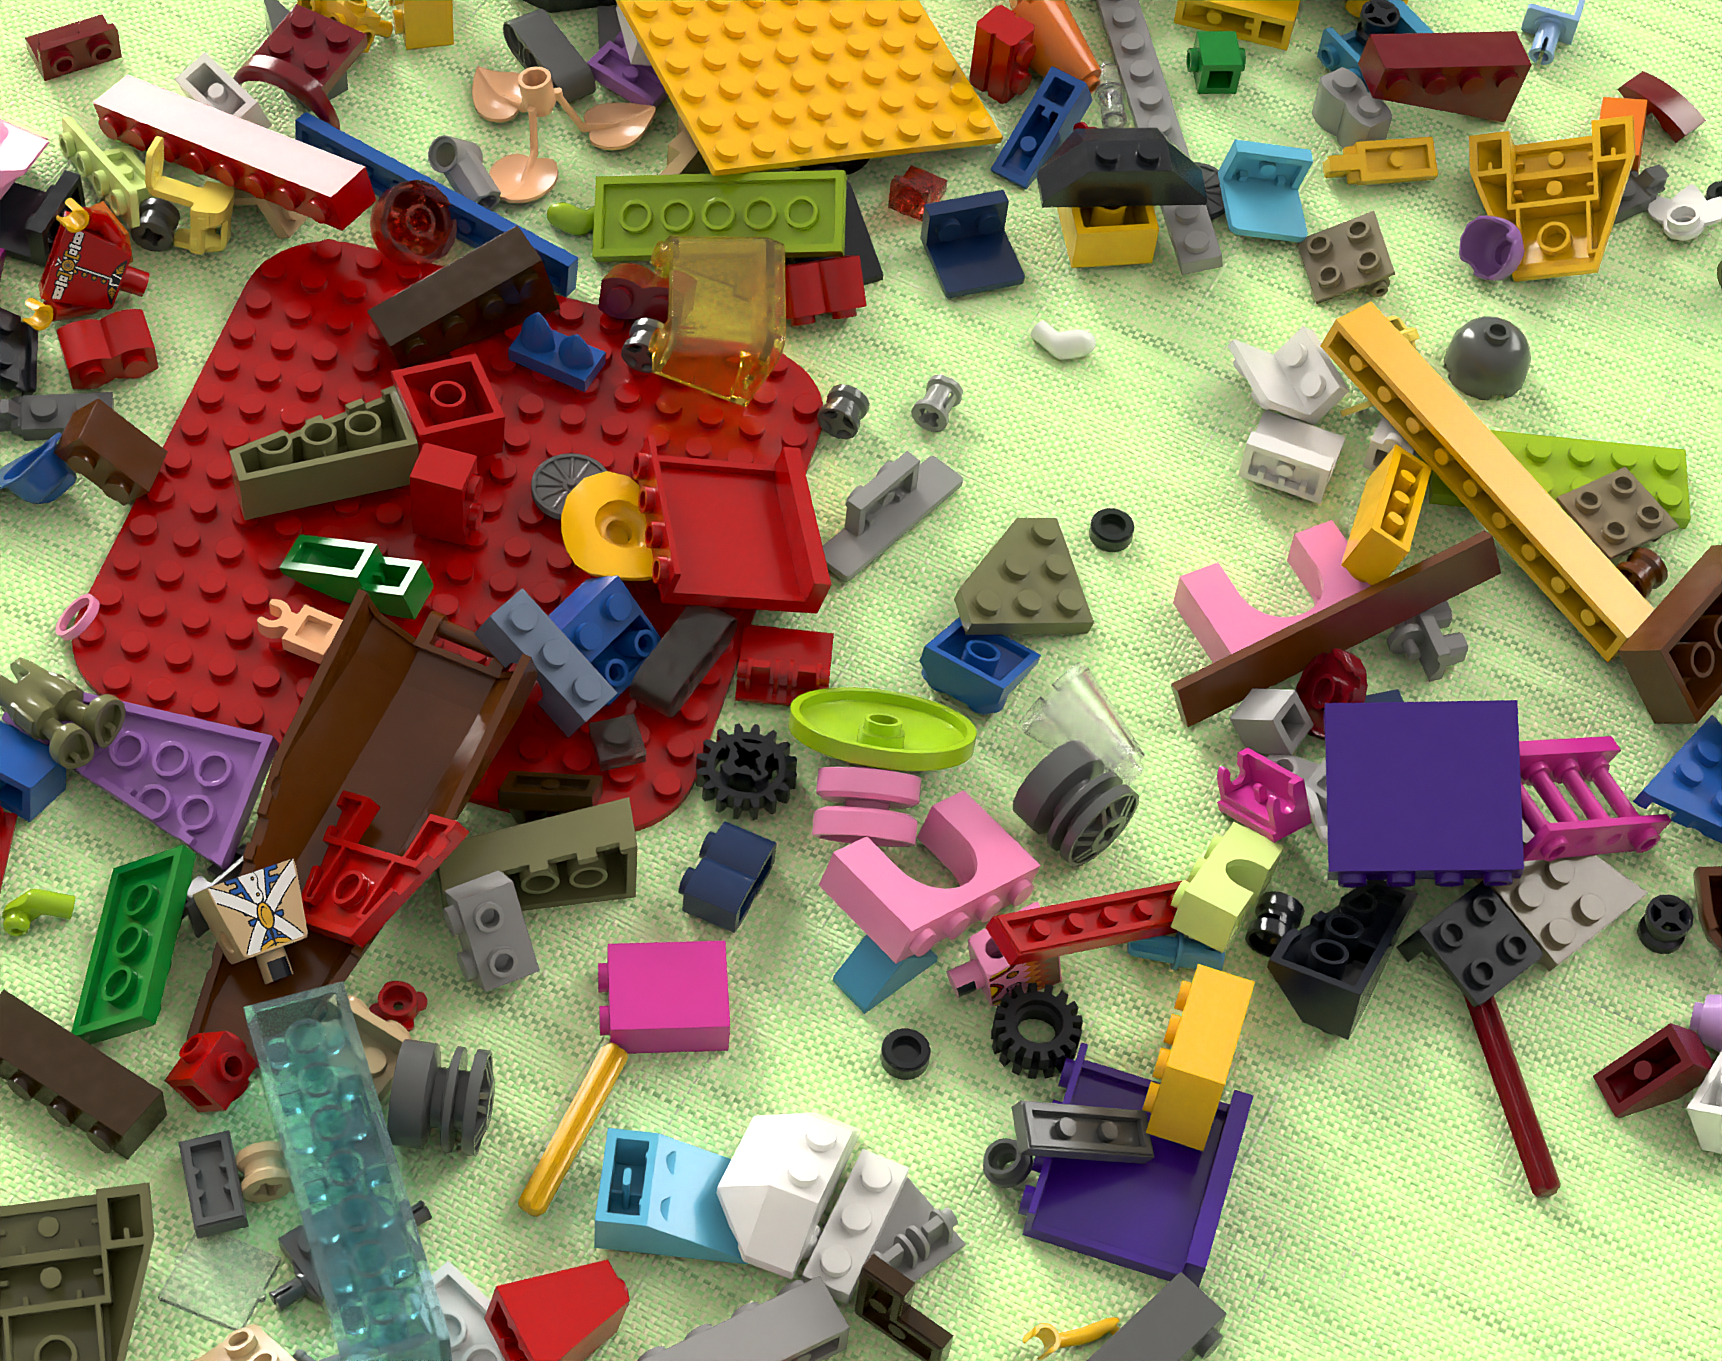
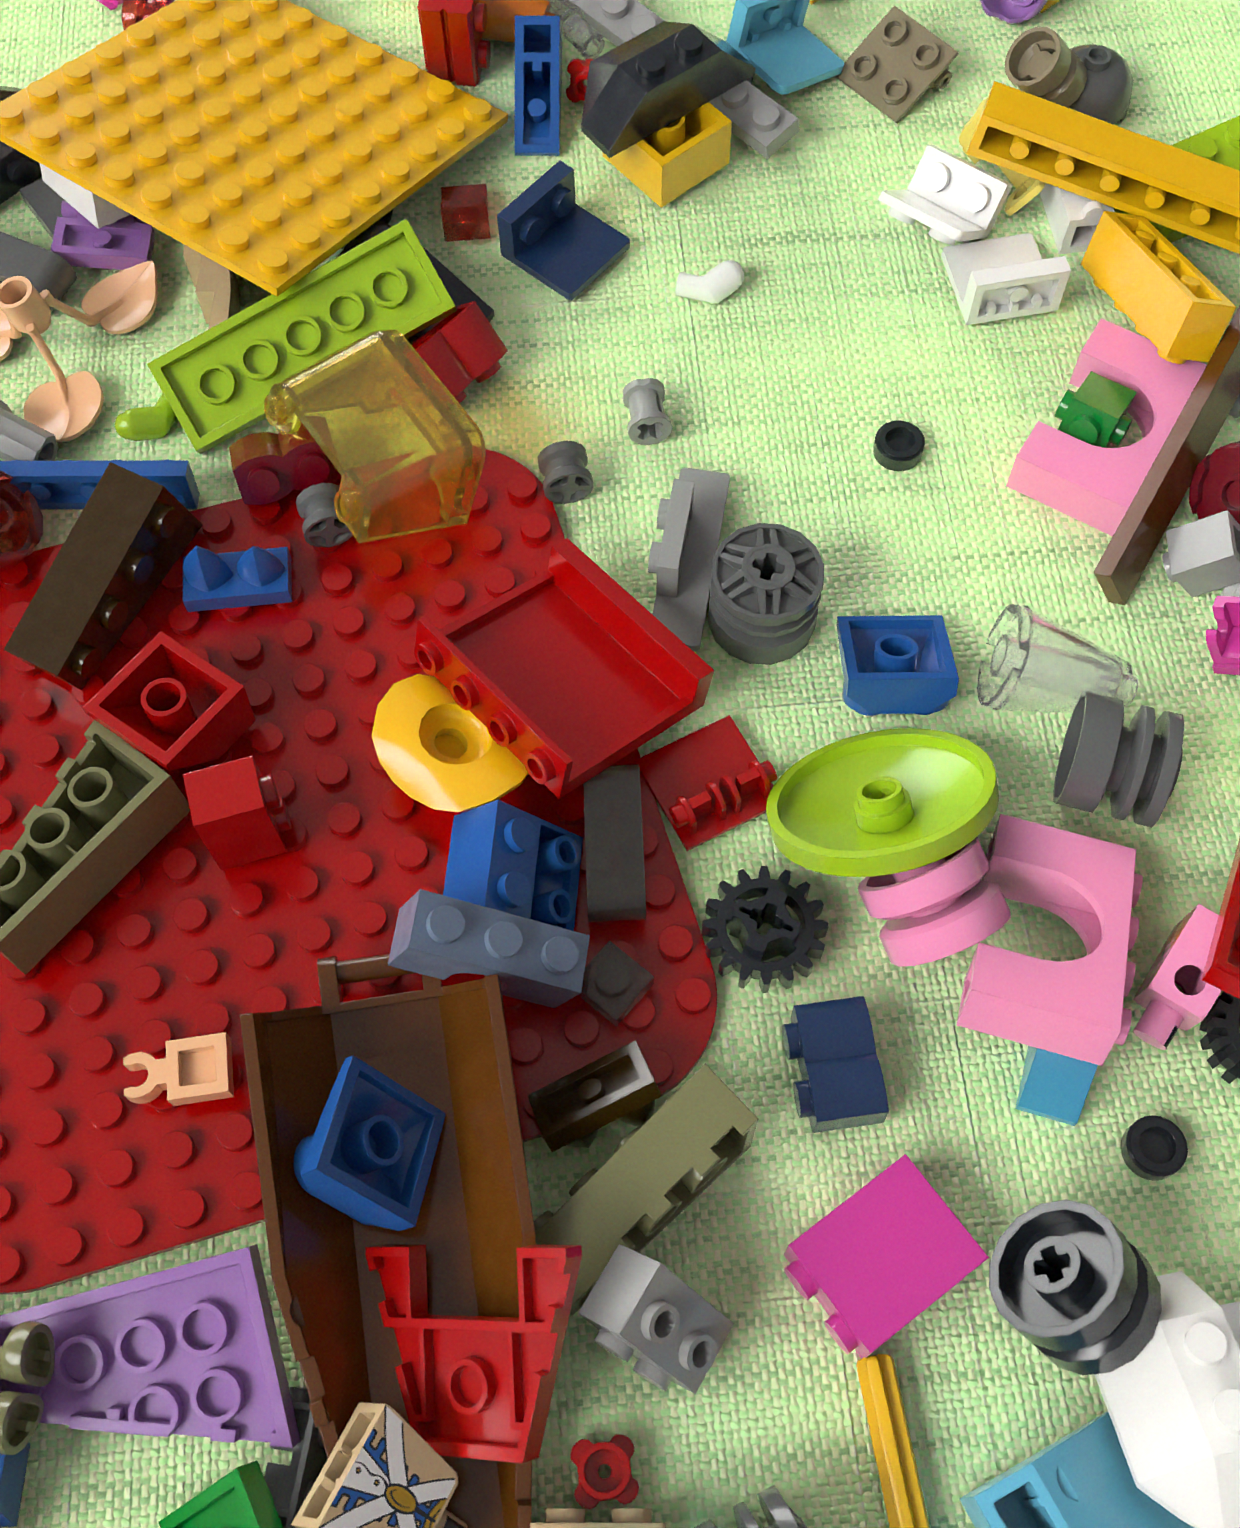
camera: 25 degrees left, 10 degrees up
(344, 566) = (199, 963): green slope -> none
(386, 729) = (371, 1148): none -> blue slope
(558, 477) = (344, 715): dark grey wheel -> none
(769, 1068) = (1075, 1287): none -> black wheel
(916, 565) = (765, 593): none -> dark grey wheel
(1025, 585) = (872, 551): olive plate -> none
(1273, 583) = (1096, 411): none -> green brick
(1443, 319) = (1046, 67): none -> dark tan wheel

